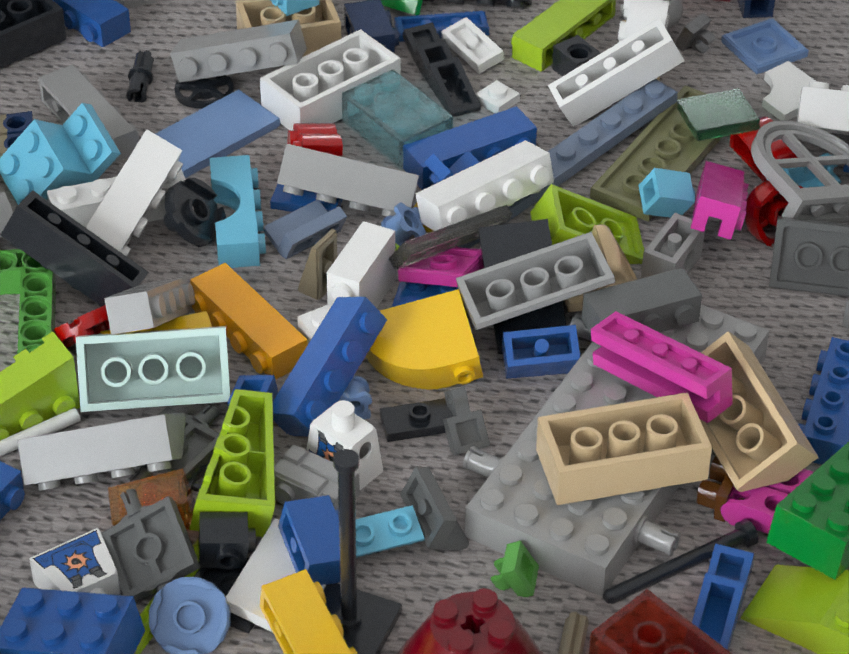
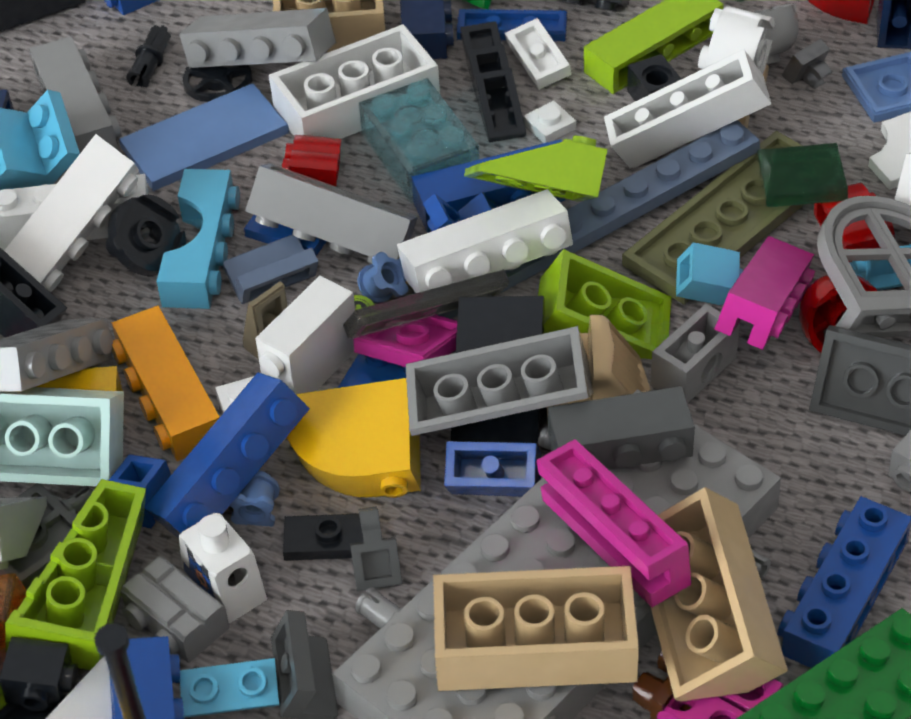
camera: 15 degrees right, 5 degrees up
(539, 121) = (566, 169): none -> lime slope

